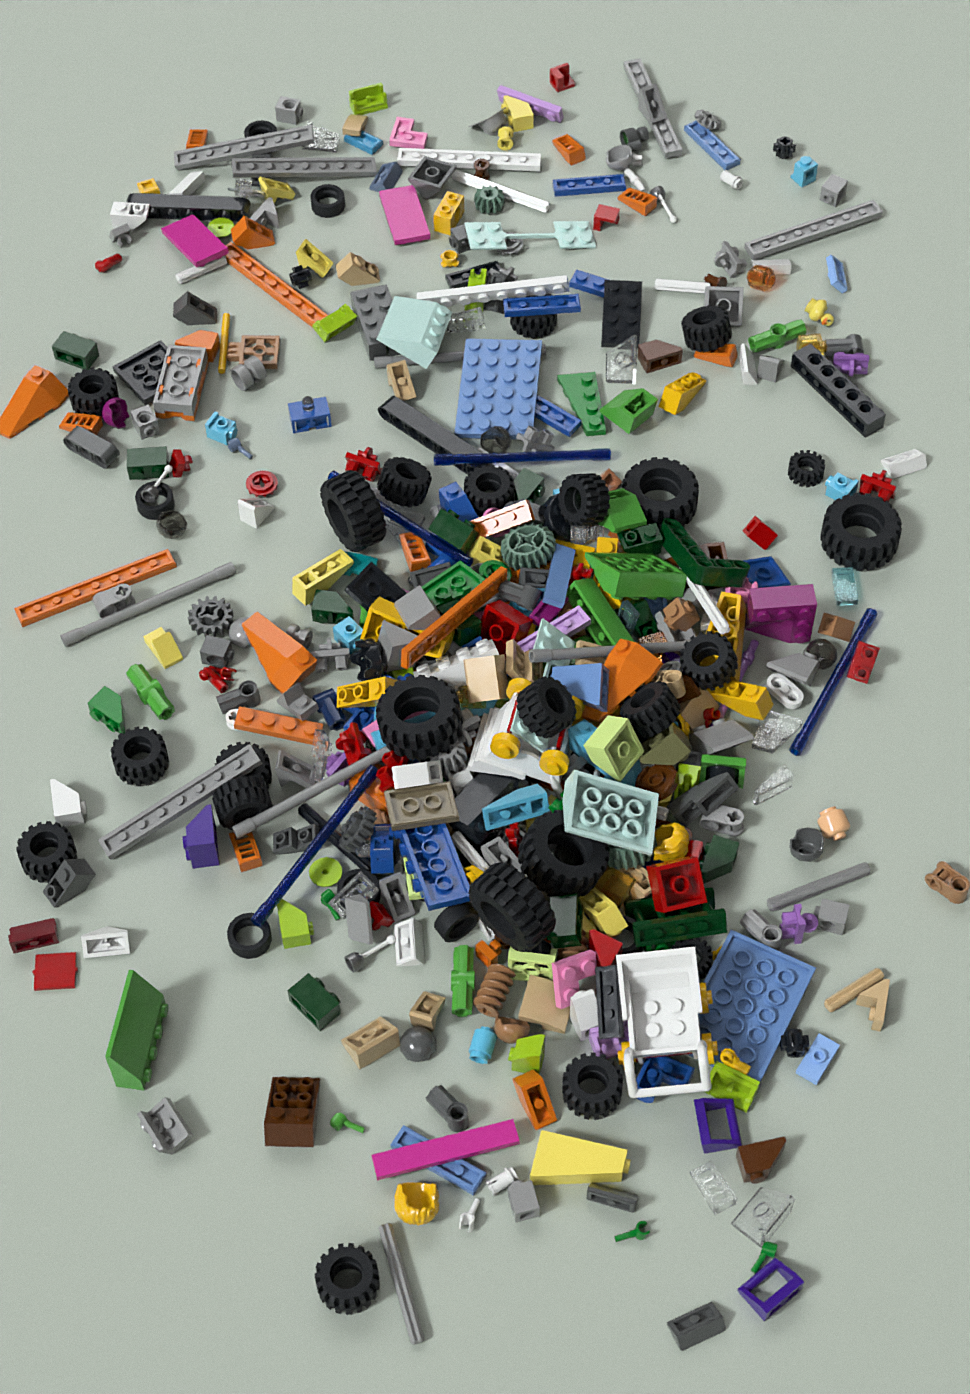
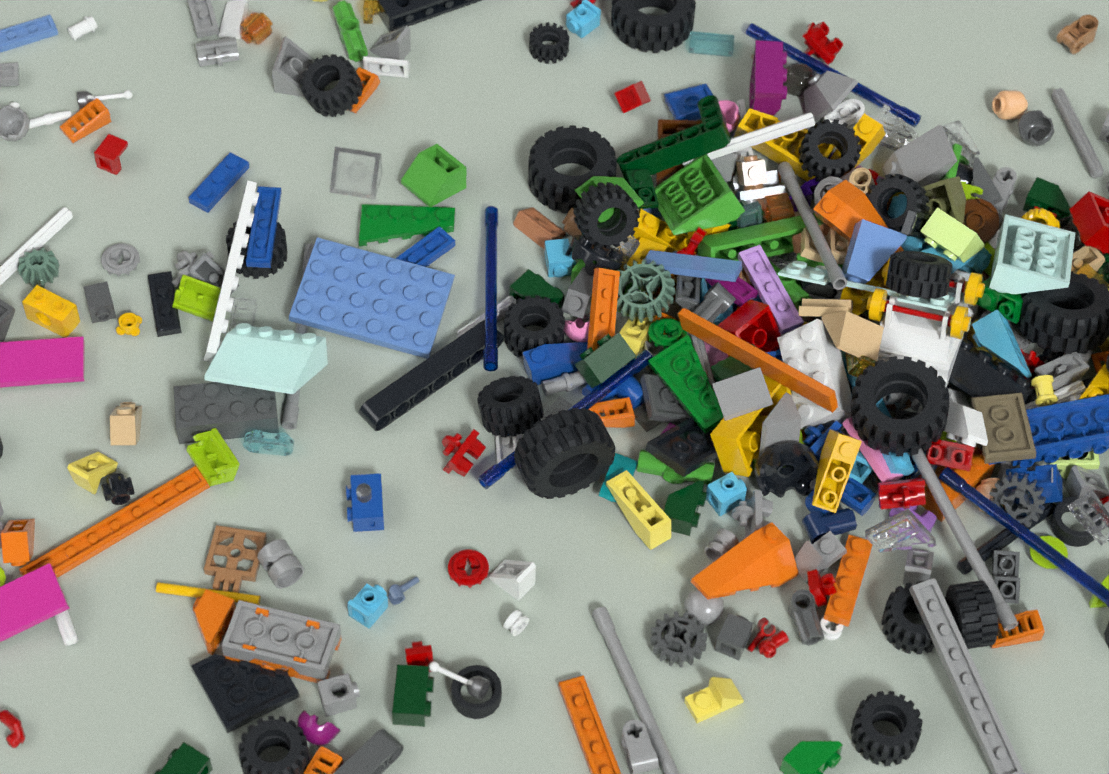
camera: 85 degrees left, 0 degrees up
(150, 691) = (785, 714): bright green piece -> none
(171, 524) = (524, 672): clear smoke hair -> none
(194, 310) = (145, 623): dark grey slope -> none
(201, 840) = (1013, 662): dark purple slope -> none
(215, 516) = (516, 622): none -> white bush
(265, 701) = (821, 586): none -> red tile
(326, 897) = (1081, 554): green hand -> none
(354, 346) = (268, 443): none -> clear light blue plate
(400, 380) = (339, 395): tan slope -> none
(469, 839) = (1044, 390): none -> light yellow bush
(491, 236) = (118, 271): light aqua hinge -> none
(496, 443) = (456, 310): clear smoke hair -> none
(533, 443) = (468, 272): light grey hips -> none
(589, 185) = (40, 166): blue tile -> none
(613, 706) = (914, 223): none -> black tile
(621, 312) = (277, 163): black plate -> none
(658, 355) = (352, 134): reddish brown slope -> none
(681, 286) = (243, 103): white axle -> none
(681, 392) = (415, 128): yellow slope -> none
(715, 281) = (248, 71): reddish brown piece -> none

